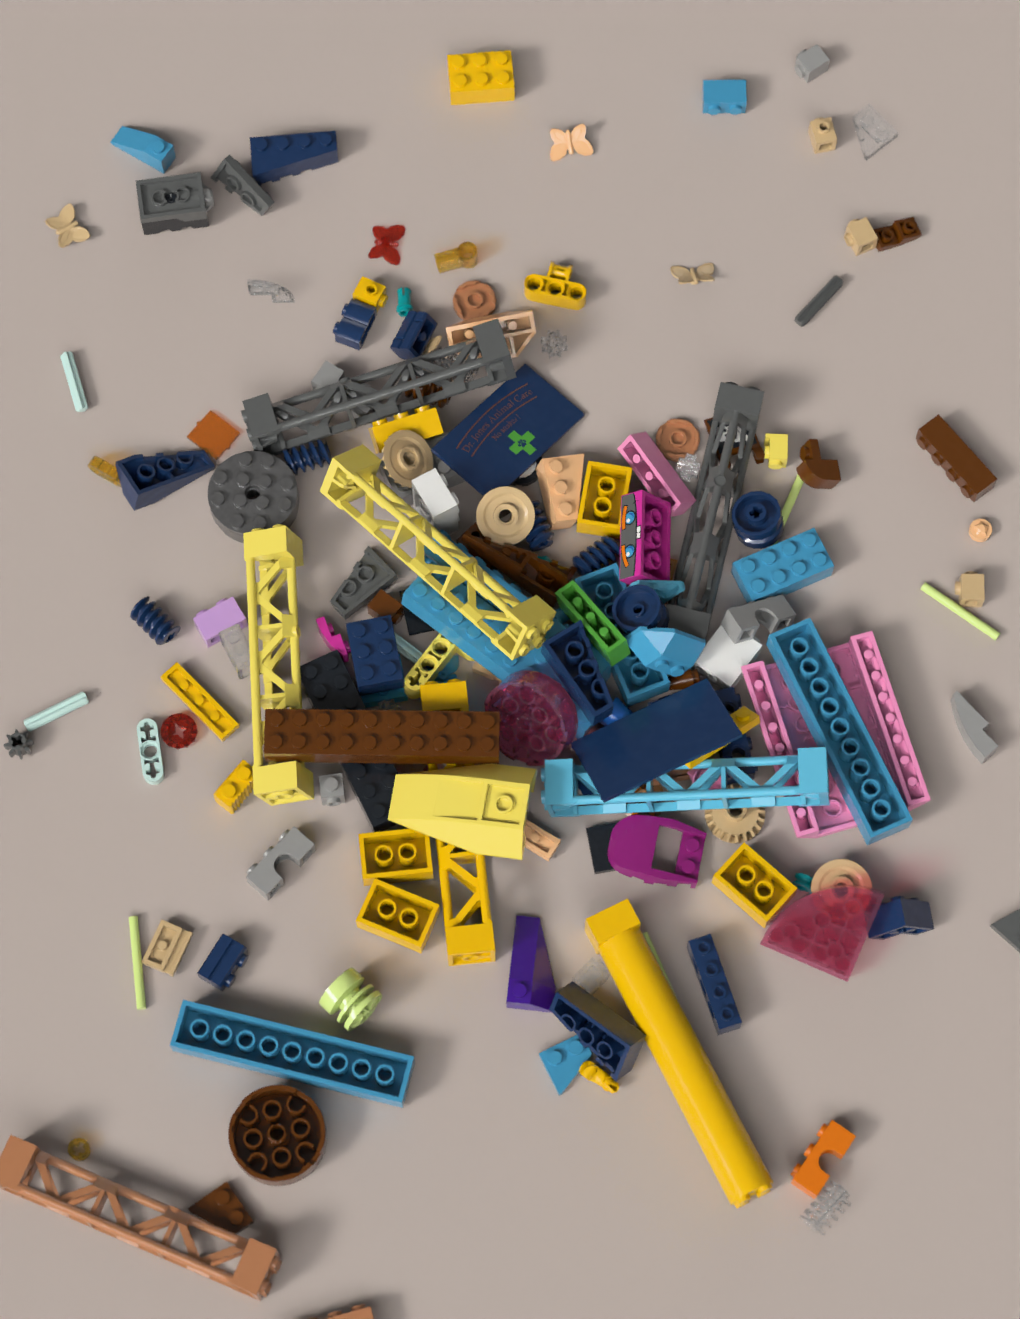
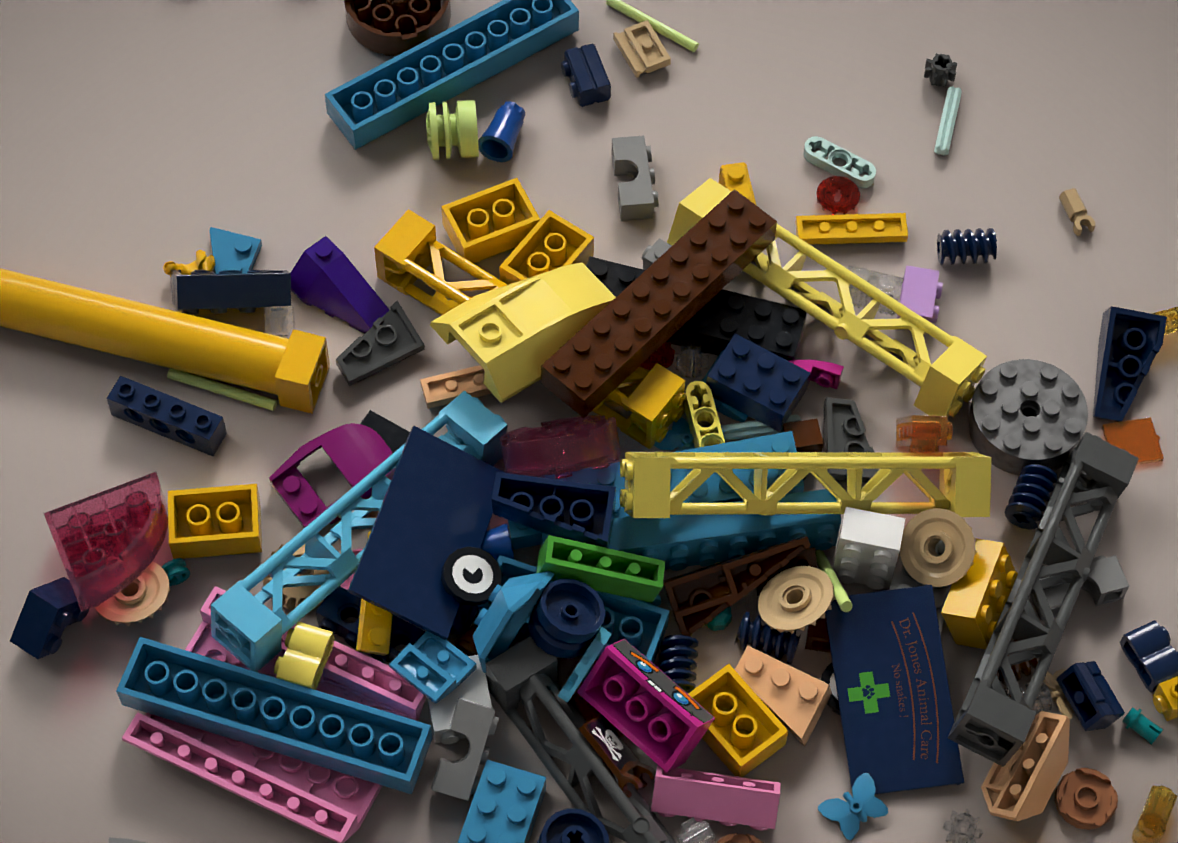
camera: 130 degrees right, 10 degrees down
(64, 582) = (1076, 211): none -> tan bar
(316, 974) = (501, 135): none -> blue plant
(333, 527) = (923, 432): none -> clear orange brick
(471, 511) = (839, 592): none -> yellowish green bar
(546, 906) = (380, 347): none -> dark grey wing
(591, 406) = (856, 808): none -> dark azure piece
(659, 695) = (470, 575): none -> black tile
(686, 537) = (616, 754): none -> flag
(730, 672) = (433, 666): none -> dark azure slope
(792, 736) = (305, 656): none -> light yellow brick

